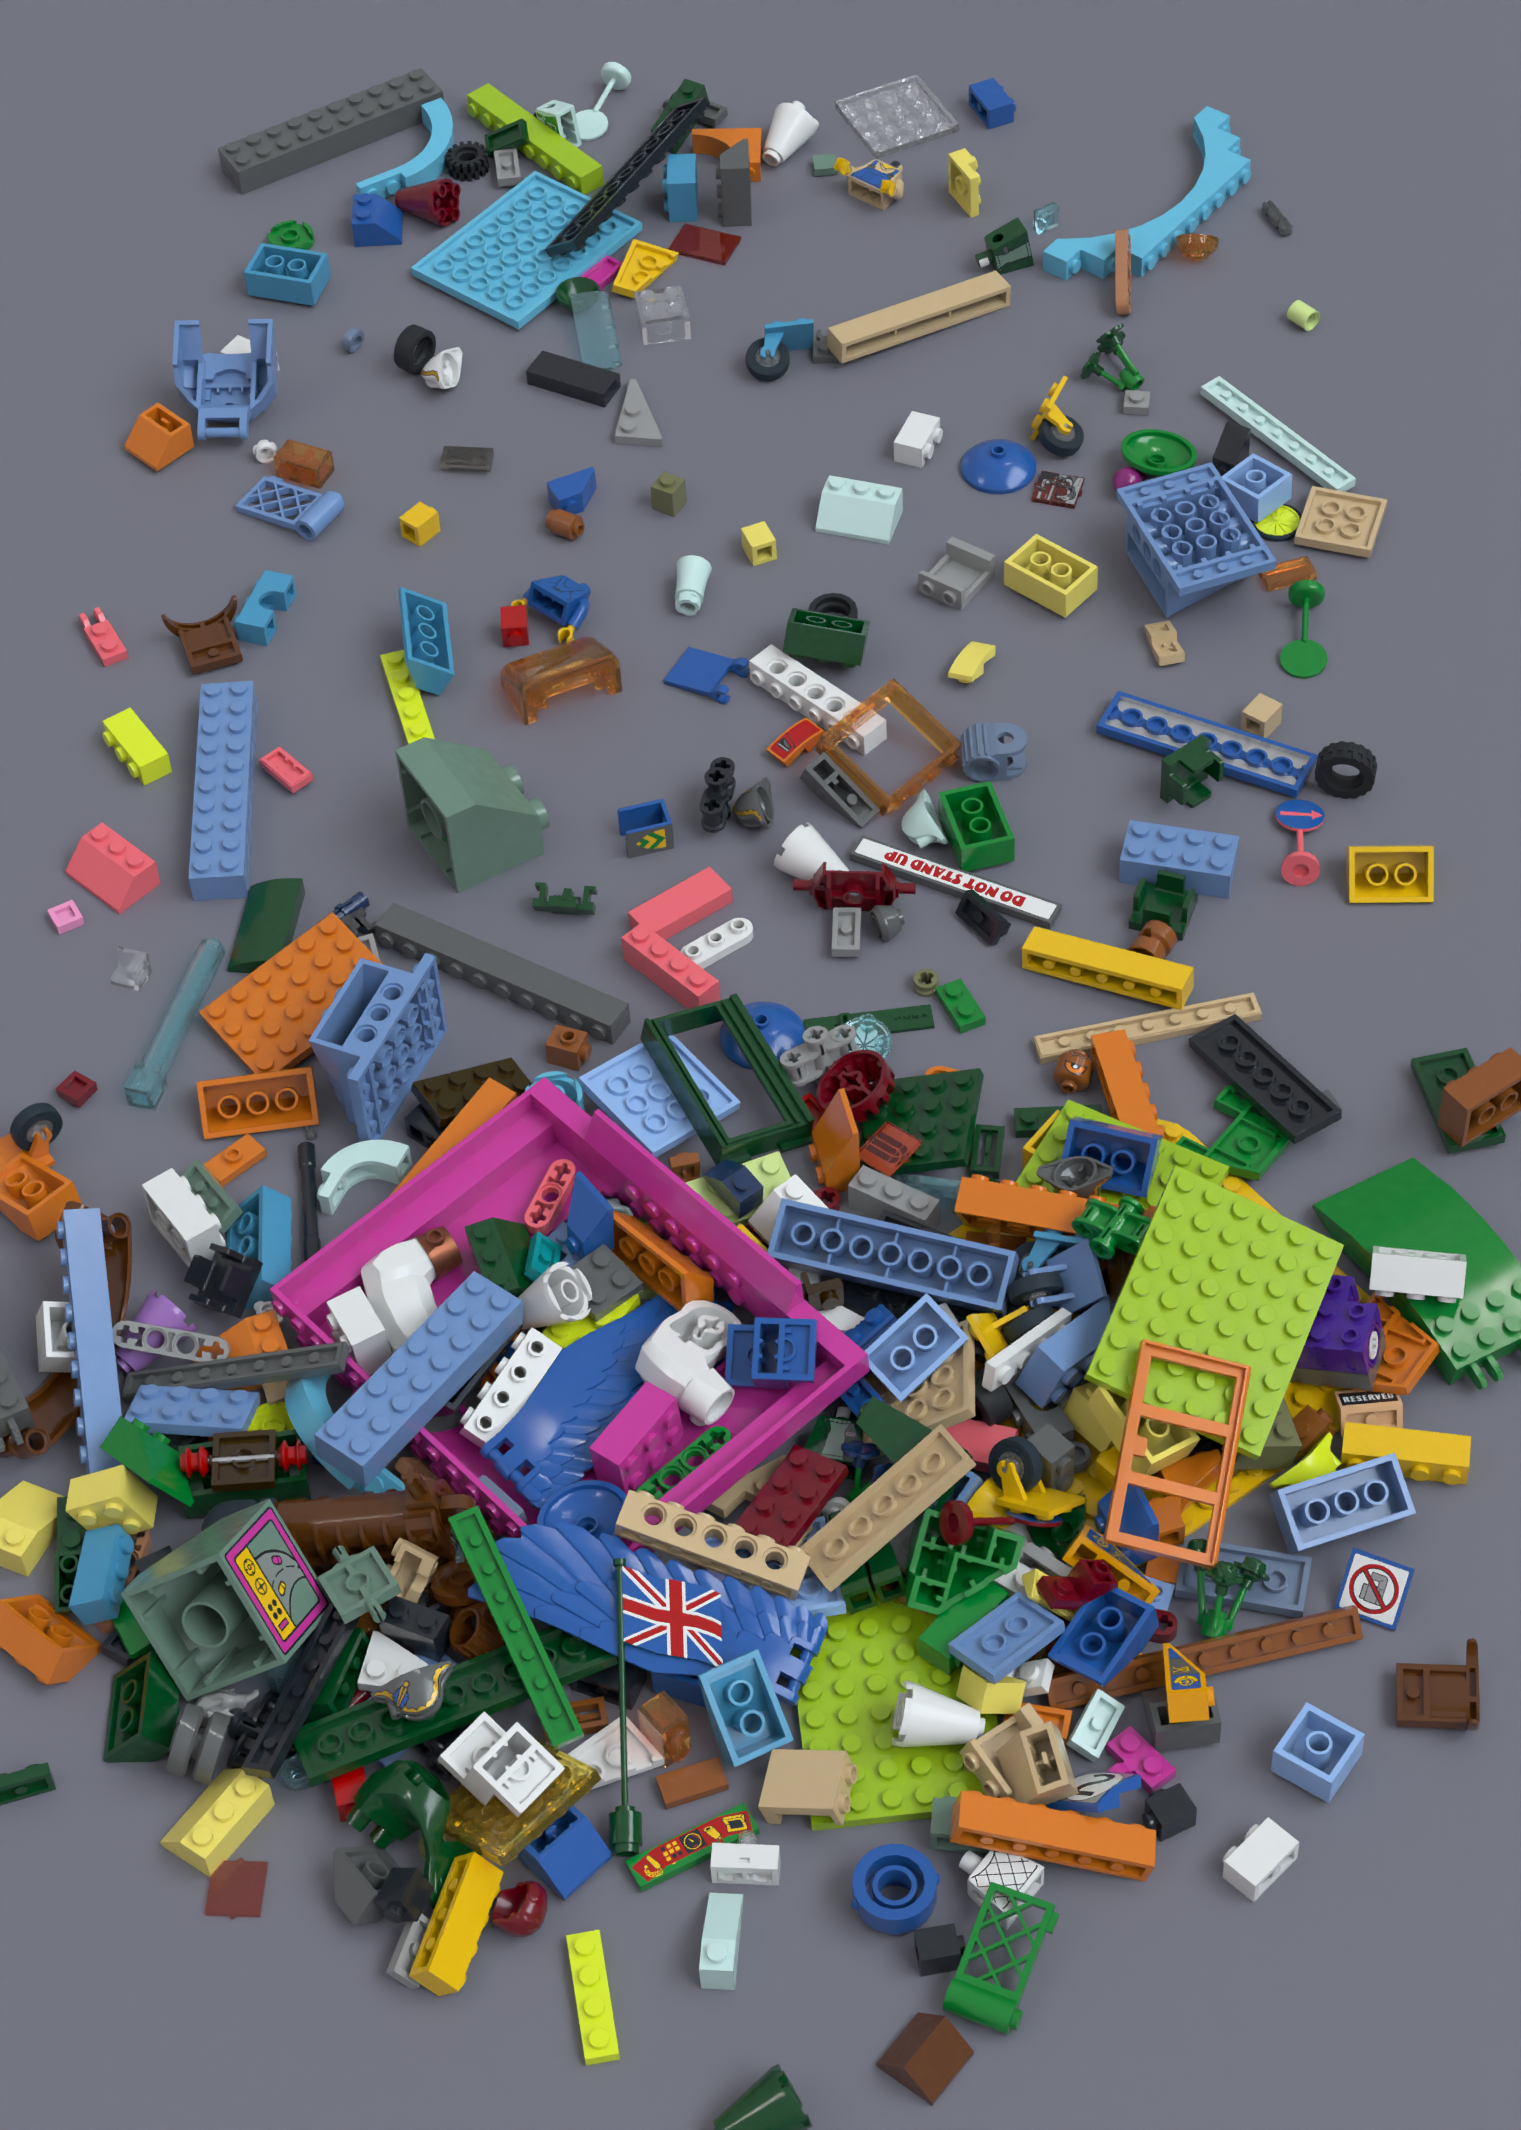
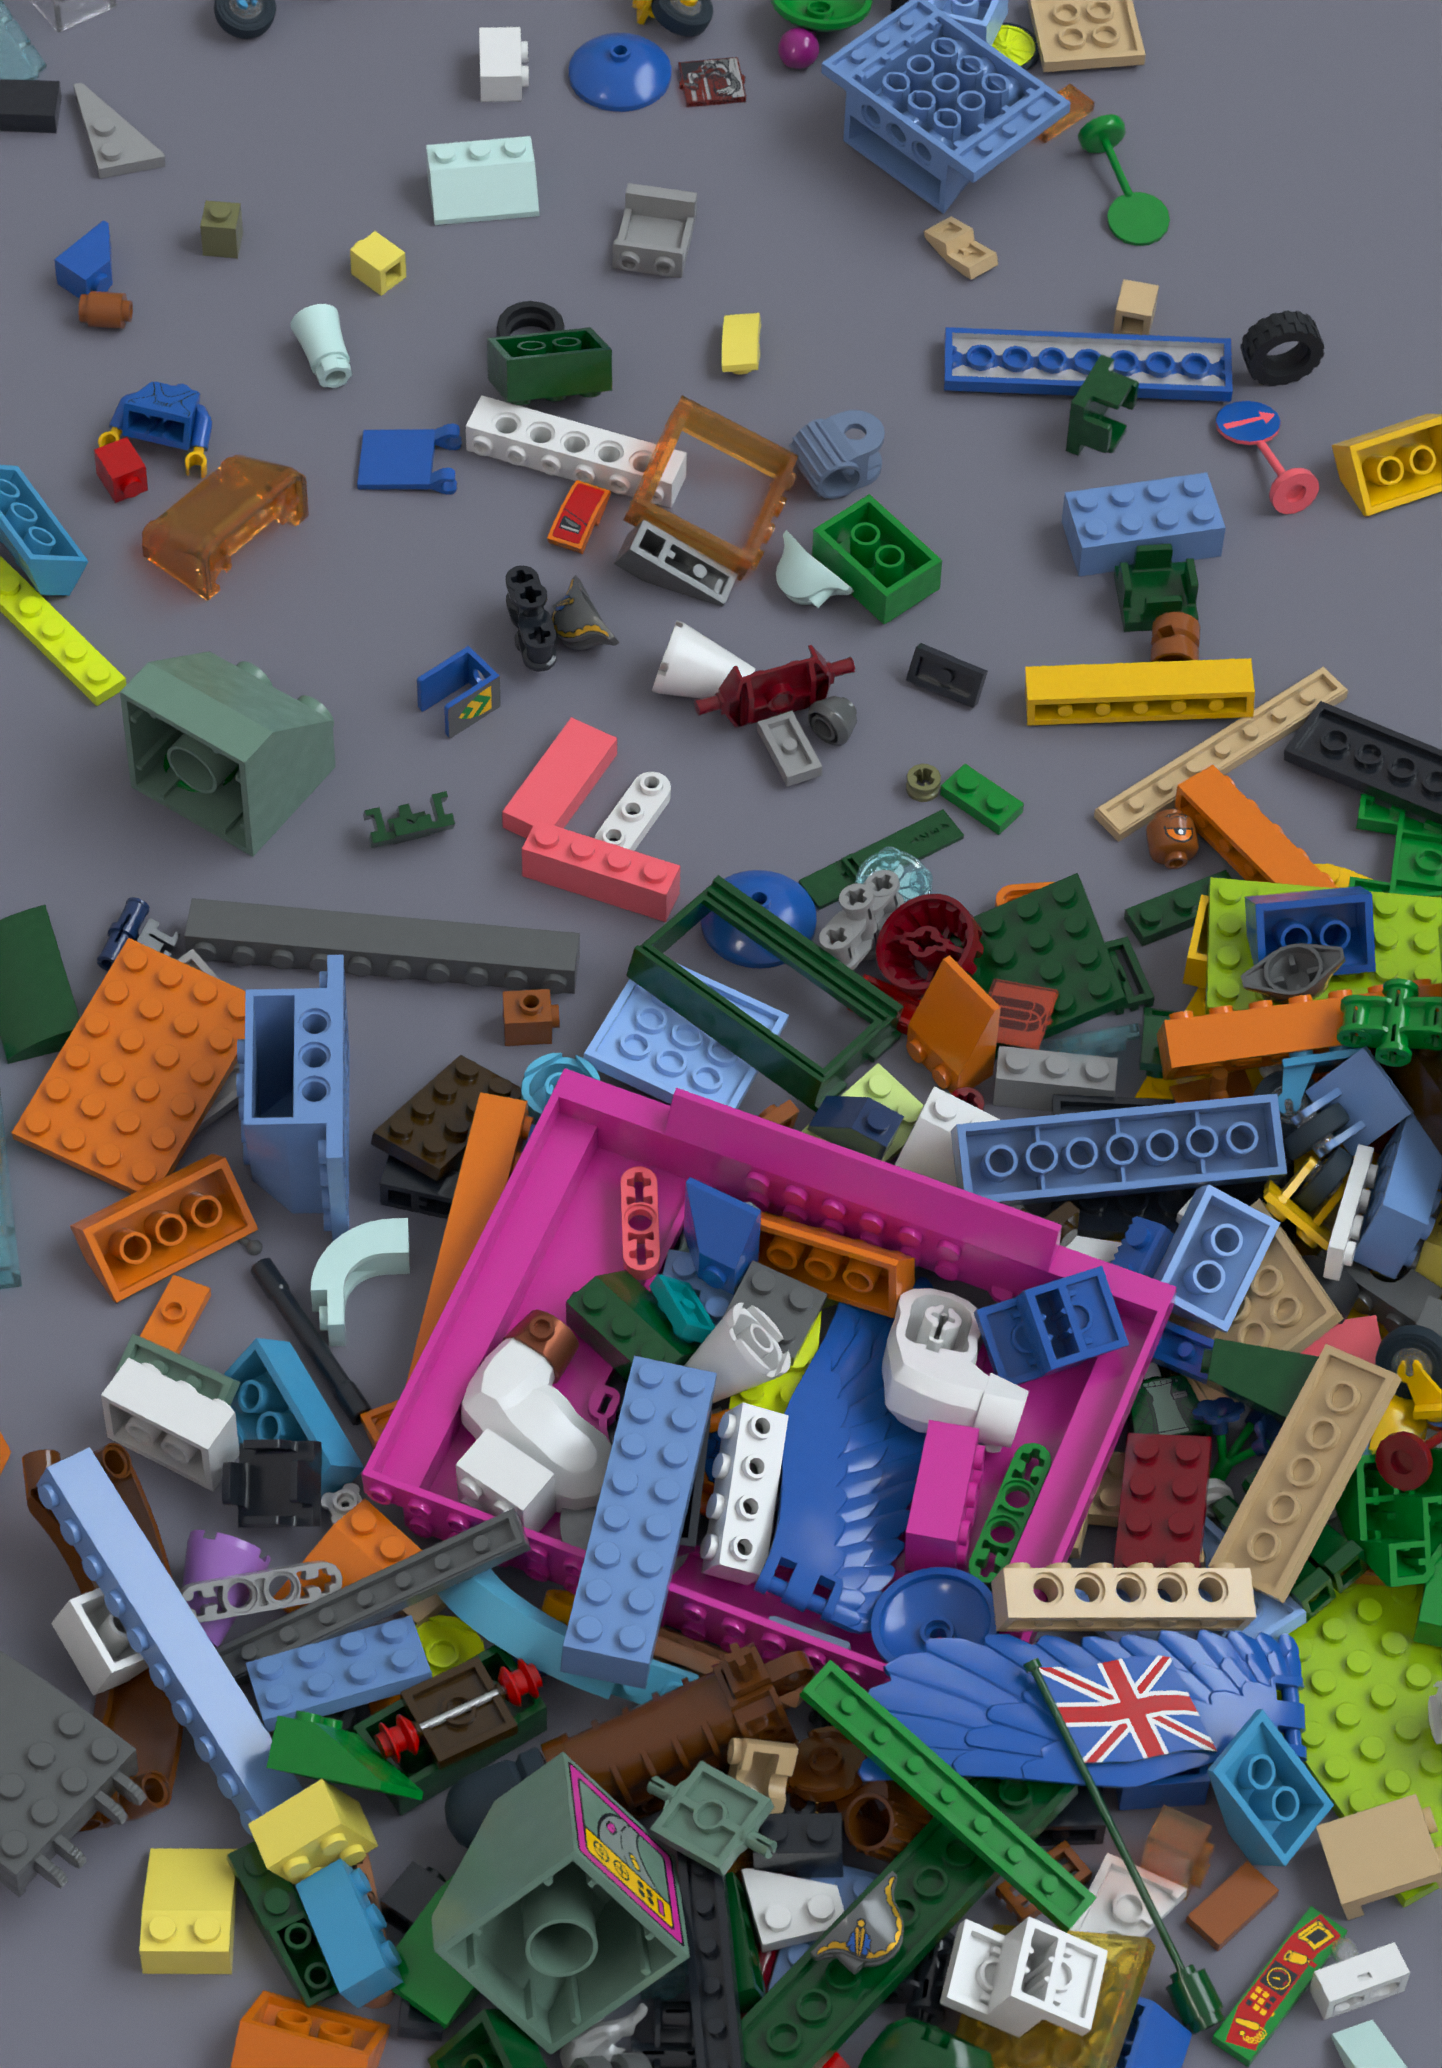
camera: 30 degrees left, 5 degrees up
(956, 881) = (881, 638): tile -> none
(1050, 575) = (778, 199): light yellow brick -> none

